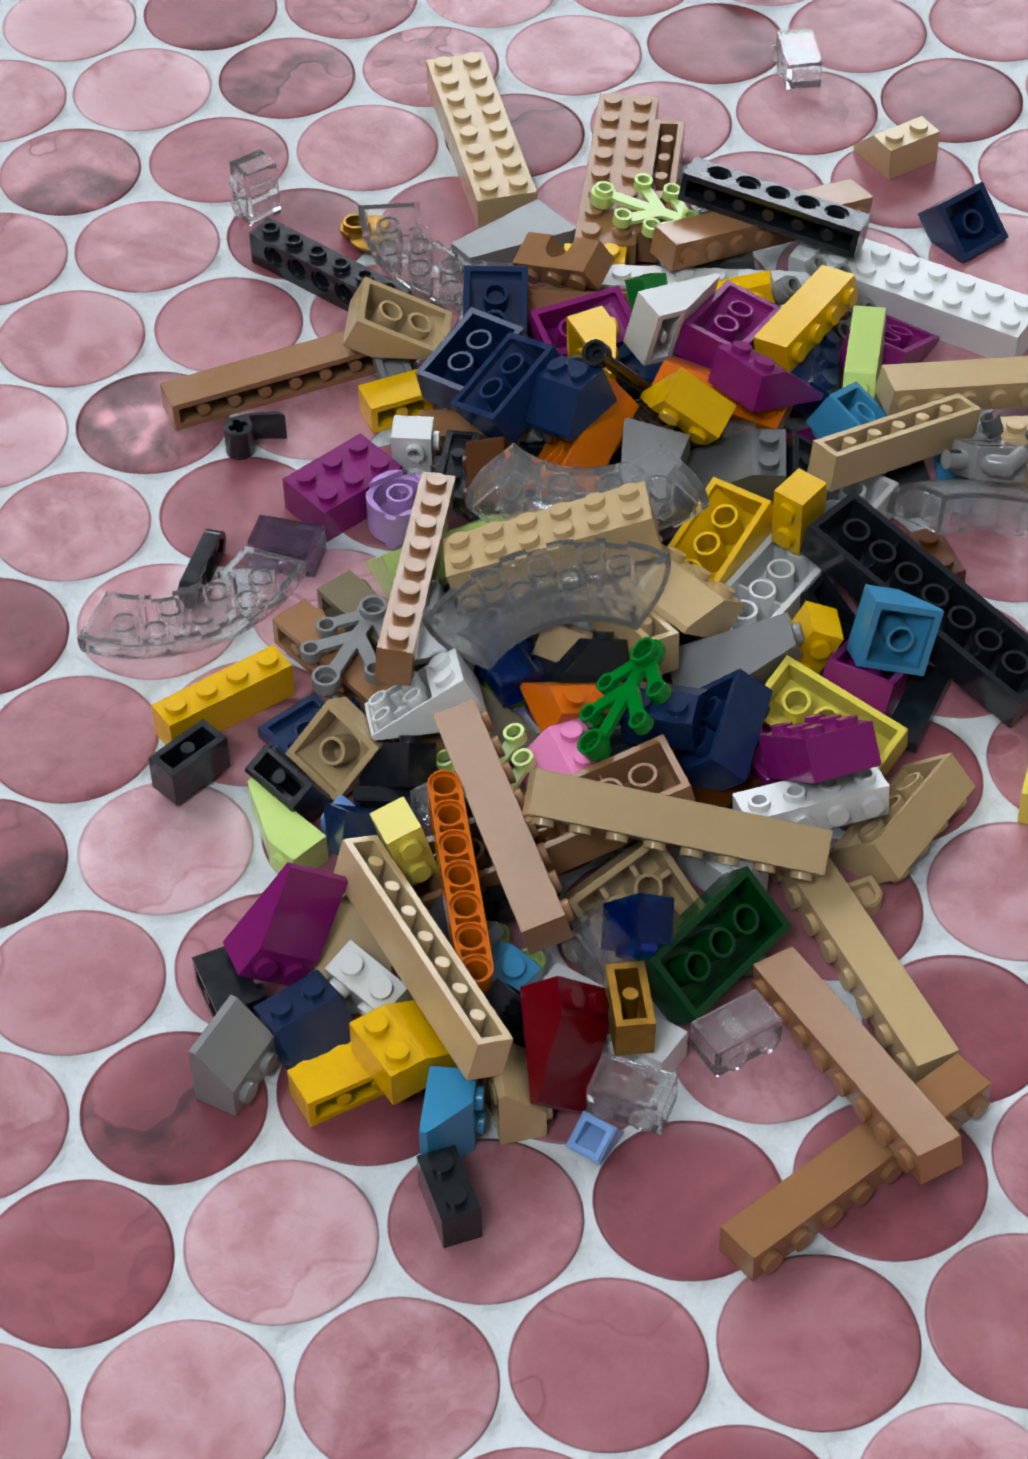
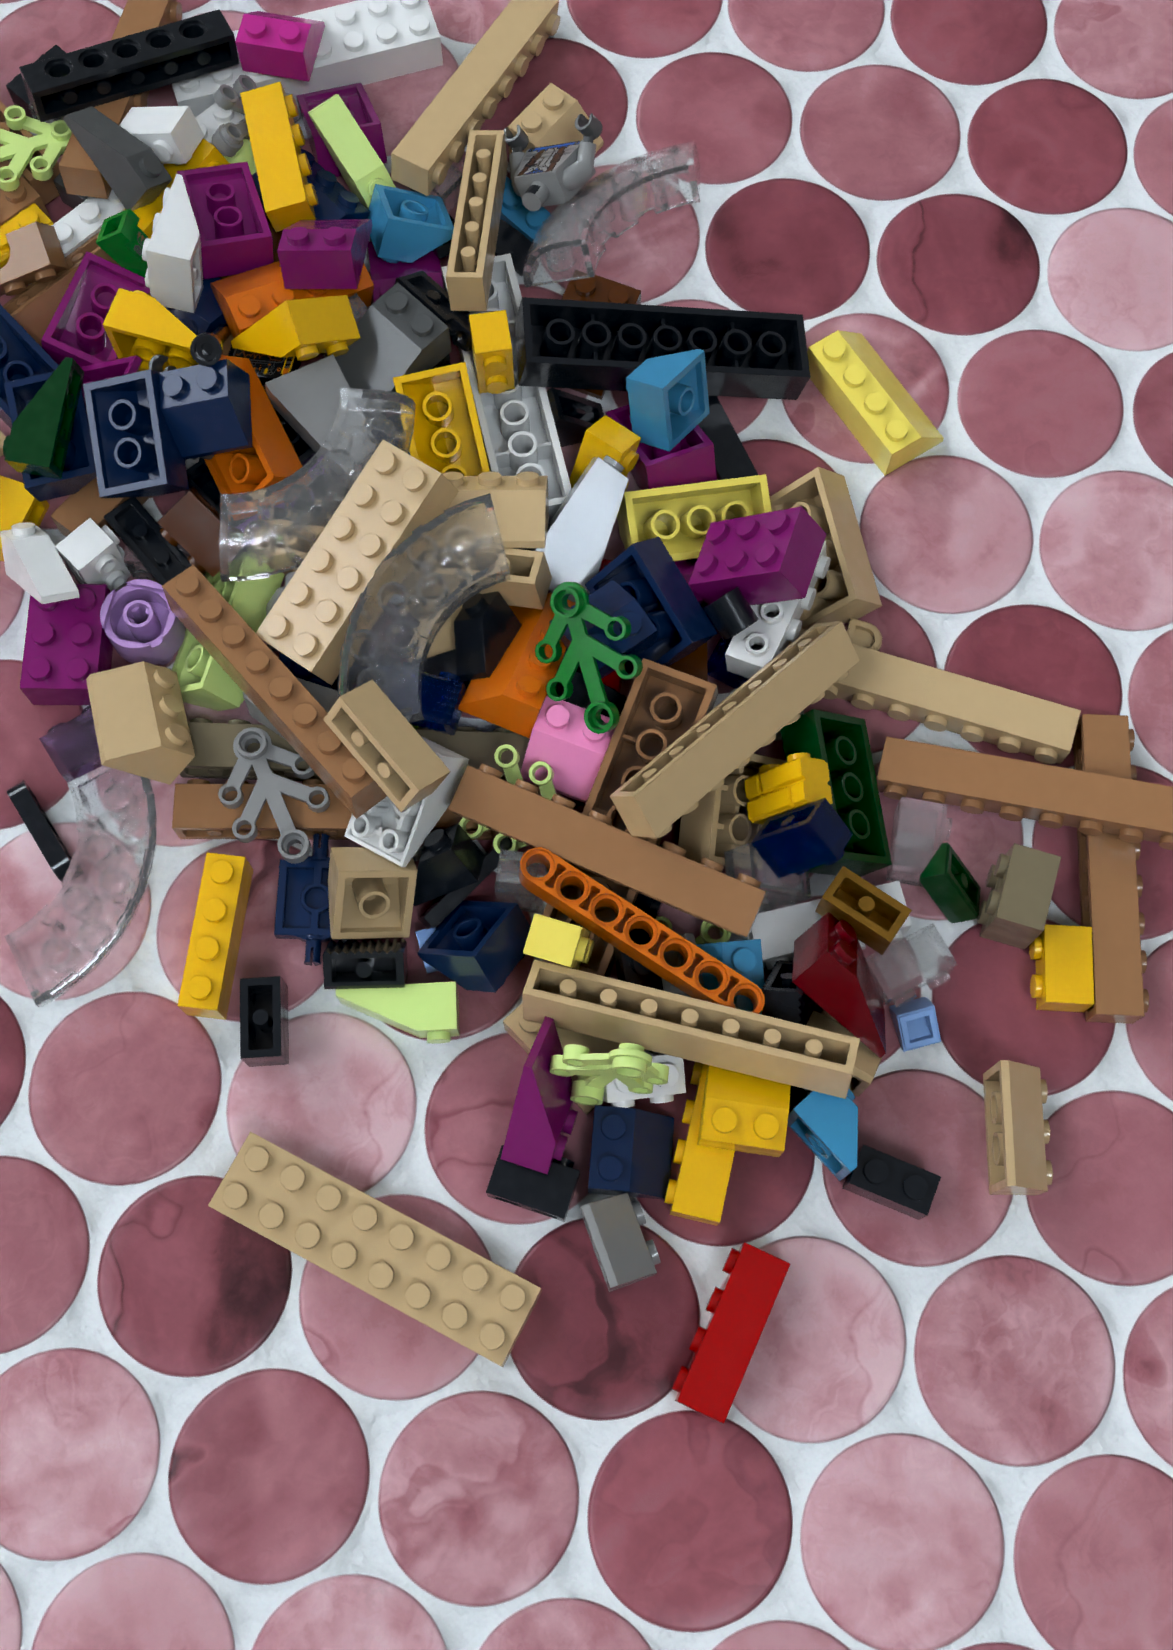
camera: 50 degrees left, 25 degrees up
(93, 939) = (376, 1248): none -> tan brick
(236, 1179) = (731, 1333): none -> red brick
(325, 545) = (141, 721): none -> tan slope
(343, 915) = (596, 1070): none -> yellowish green plant
(375, 419) = (36, 564): none -> white slope
(432, 635) = (386, 745): none -> tan brick
(466, 340) = (44, 427): none -> dark green slope
(572, 1240) = (1016, 1129): none -> tan slope
(689, 891) = (786, 786): none -> yellow brick
(697, 242) = (120, 157): none -> dark grey slope
(723, 1069) = (951, 885): none -> dark green slope
(735, 1186) = (1063, 969): none -> yellow brick
(741, 254) = (167, 130): none -> white brick
(760, 1113) = (1018, 896): none -> dark tan brick
(761, 764) = (730, 613): none -> black panel
(891, 263) = (278, 44): none -> dark pink slope

